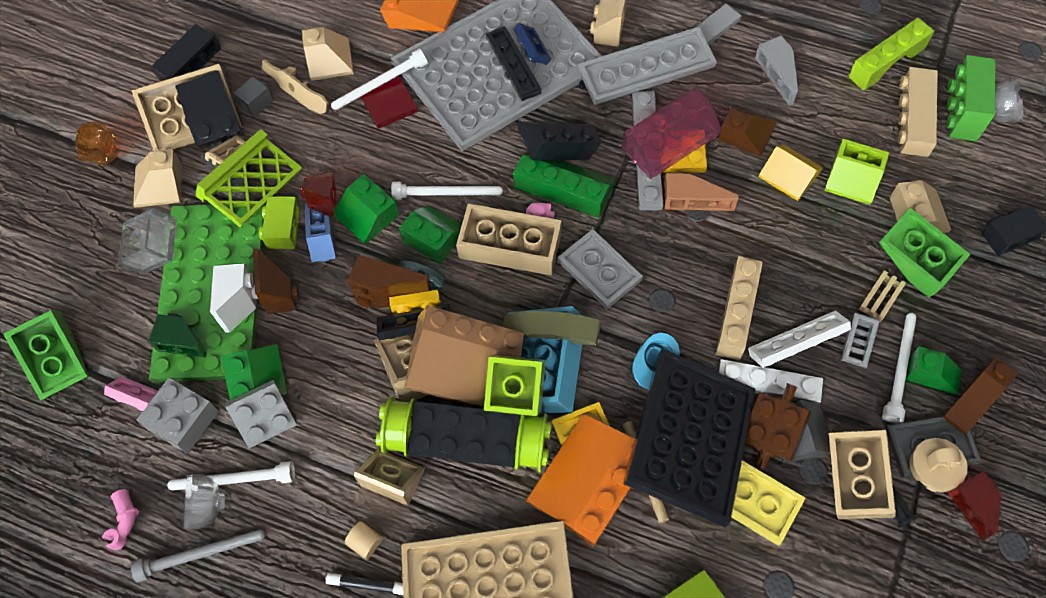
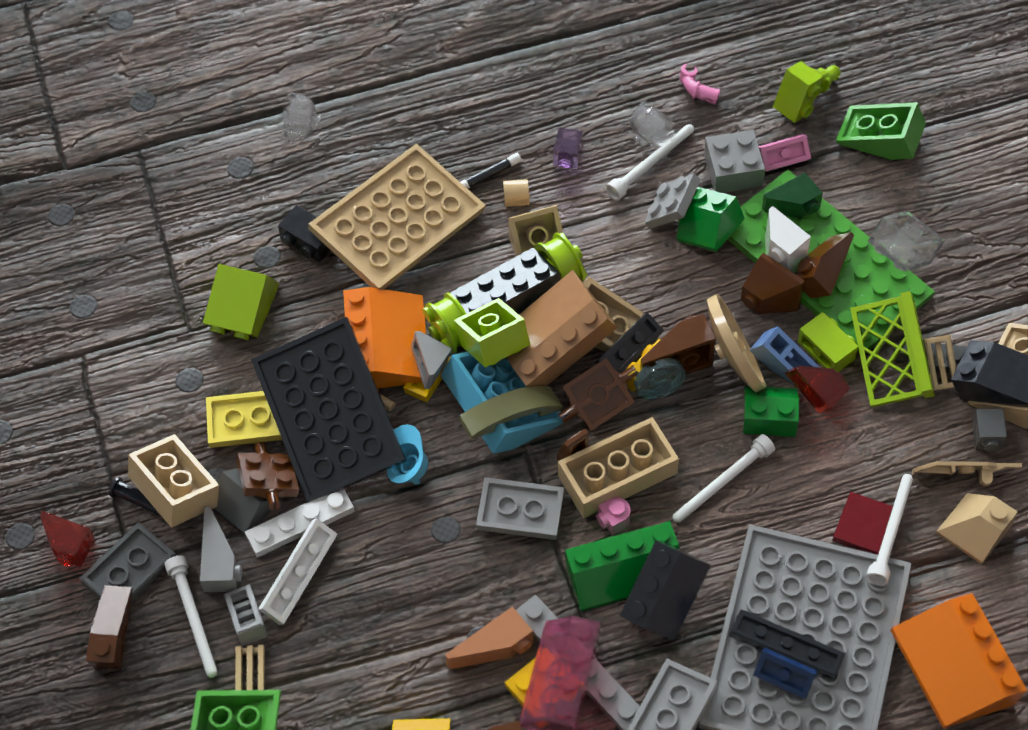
camera: 140 degrees right, 5 degrees down
(58, 427) = (800, 89): none -> lime brick
(143, 568) = (647, 73): light grey piece -> none
(158, 179) = (974, 304): tan slope -> none
(201, 271) = (823, 265): none -> reddish brown slope
(283, 544) = (568, 148): none -> clear purple brick
(353, 243) = (733, 344): none -> tan dish
(430, 233) = (694, 431): green slope -> none
(473, 299) = (598, 394): none -> reddish brown plate
(528, 273) = (574, 444): none -> reddish brown slope
(575, 417) = (430, 357): none -> light grey slope
(739, 308) = (370, 558): tan brick -> none
(856, 392) = (218, 564): none -> light grey slope
(933, 370) = (161, 627): green slope -> none
(938, 464) = (115, 544): tan tile -> none

